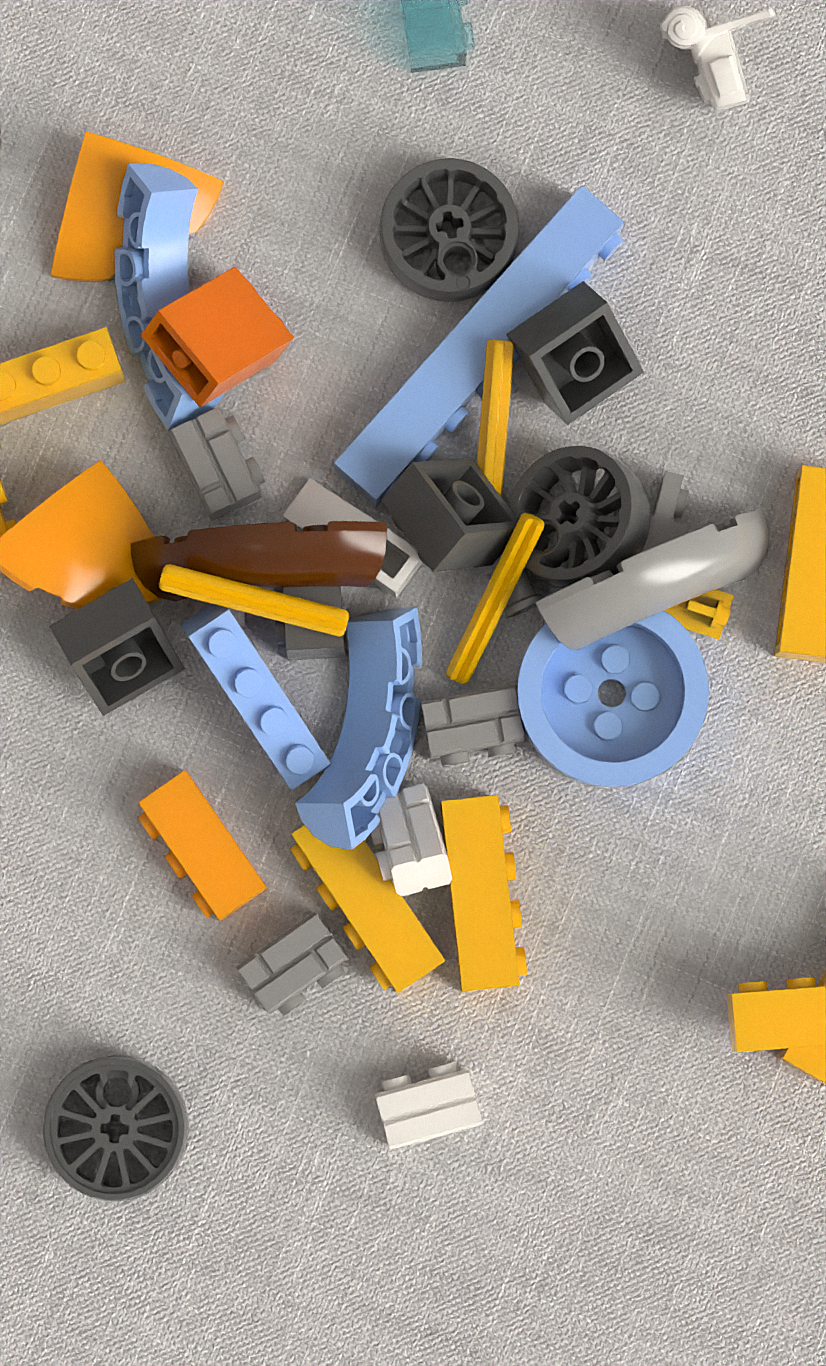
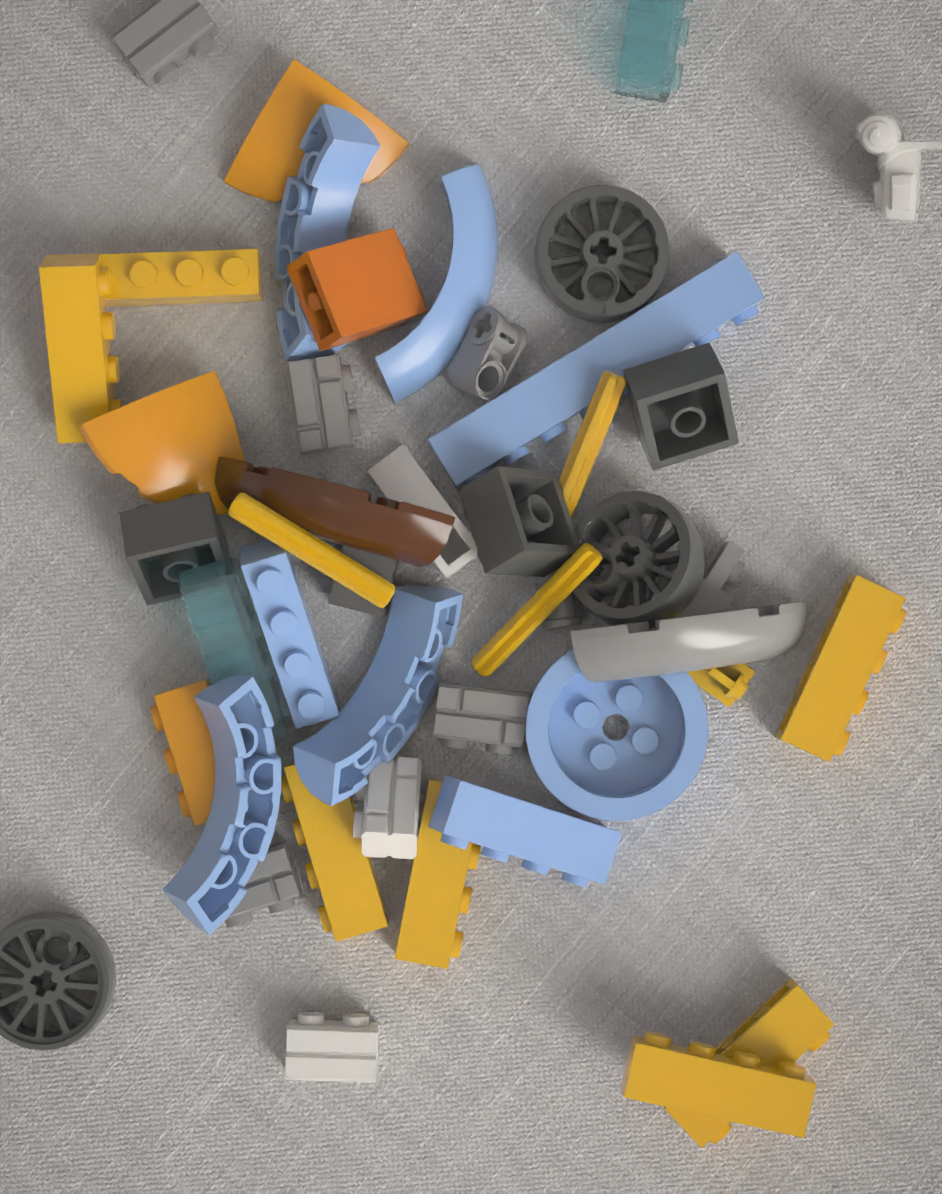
camera: 20 degrees right, 5 degrees up
(205, 732) = (230, 632): none -> clear light blue brick
(261, 881) = (241, 808): none -> light blue brick
(325, 313) = (465, 291): none -> light blue brick
(367, 365) = (486, 357): none -> light grey piece
(552, 820) = (523, 830): none -> light blue brick

